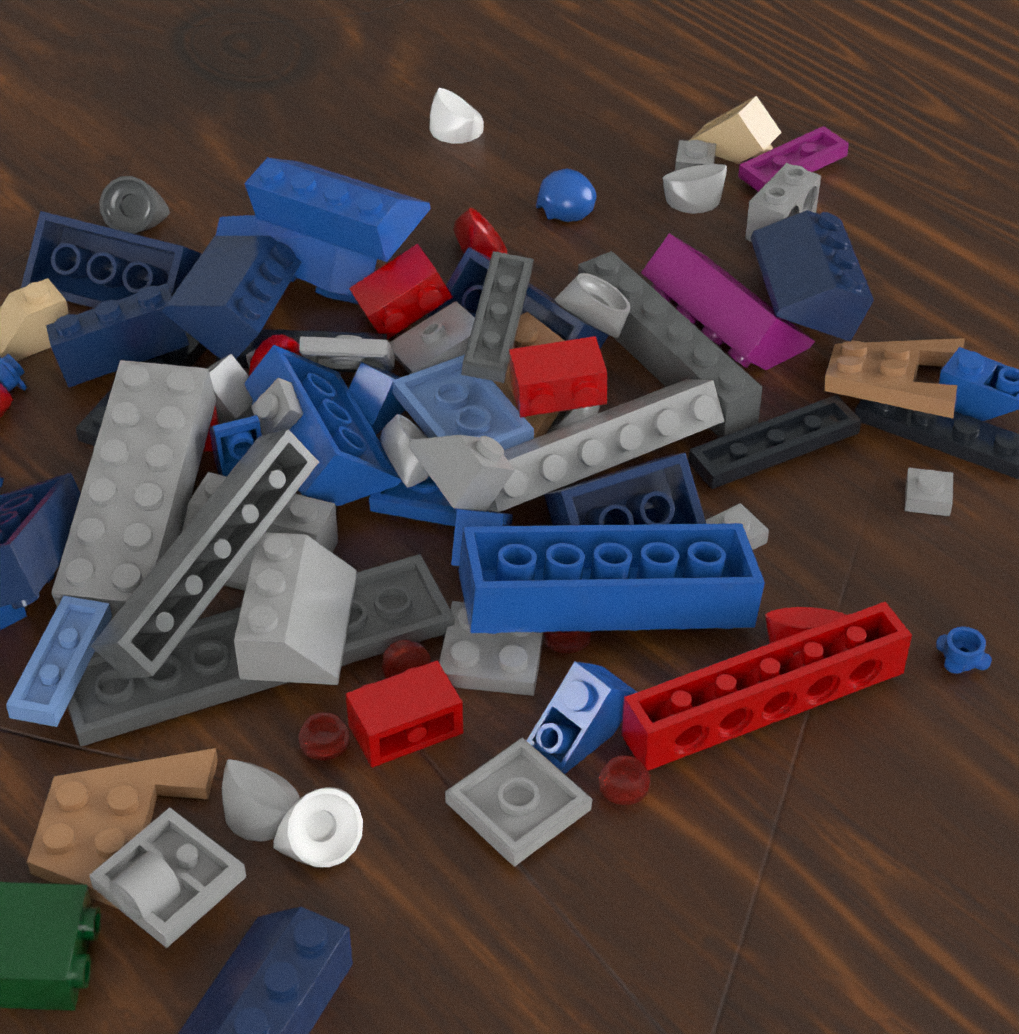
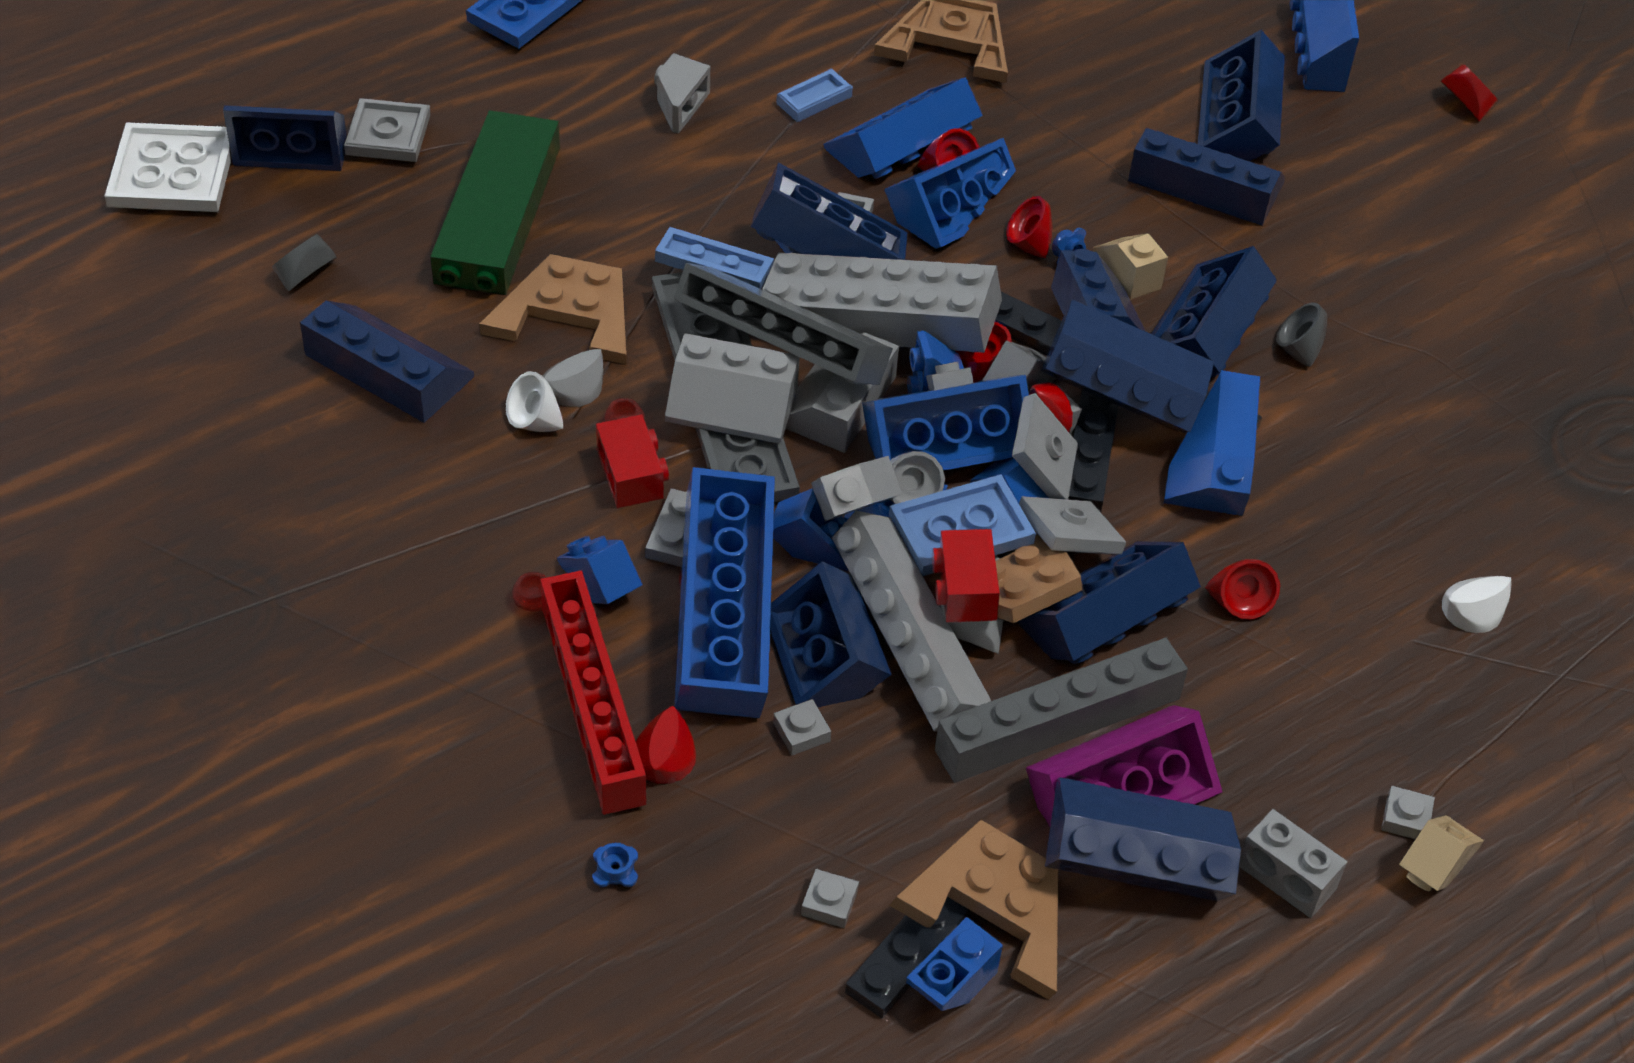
camera: 95 degrees right, 5 degrees up
(168, 877) = (503, 311): light grey plate -> none
(333, 207) = (1241, 437): blue slope -> none
(401, 292) = (1145, 505): red brick -> none
(403, 656) = (681, 467): clear red plate -> none
(497, 317) = (1068, 544): dark grey tile -> none
(518, 801) = (530, 522): light grey plate -> none
(566, 195) = (1327, 675): blue hair -> none
(595, 303) = (1089, 632): light grey piece -> none
(695, 188) = (1344, 796): light grey piece -> none
(774, 441) = (913, 778): black plate -> none
(808, 151) = (1398, 905): magenta plate -> none

